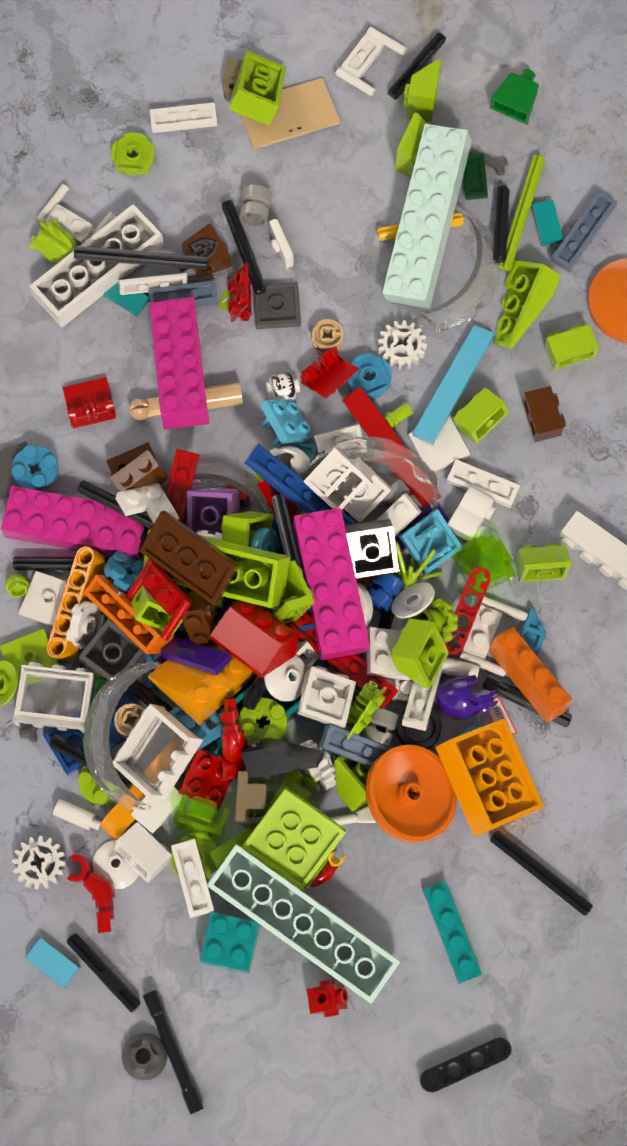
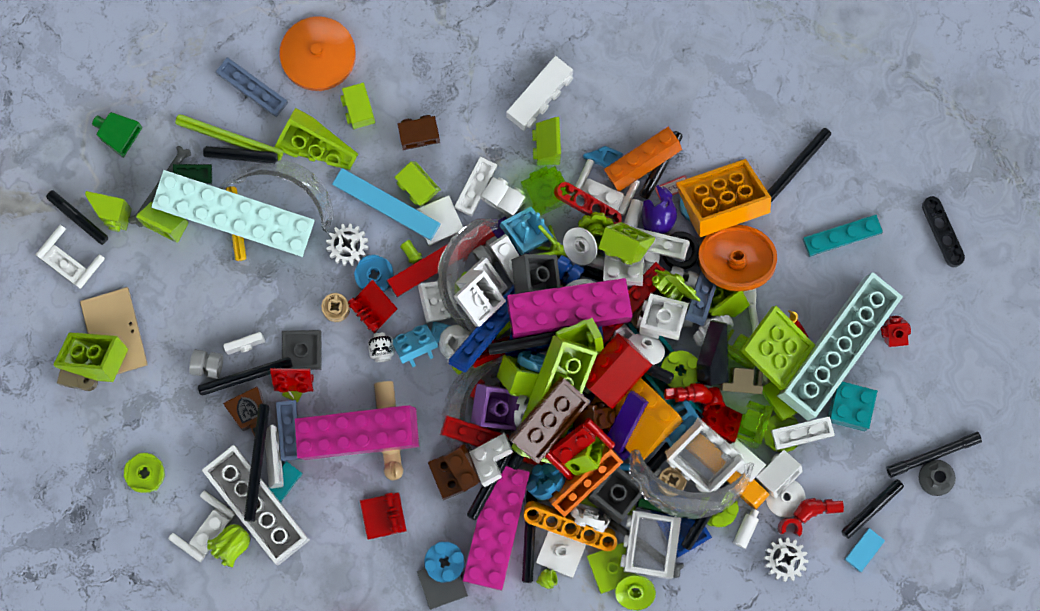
camera: 90 degrees left, 5 degrees up
(183, 117) = (111, 426): white plate -> none
(547, 223) = (240, 117): teal tile -> none

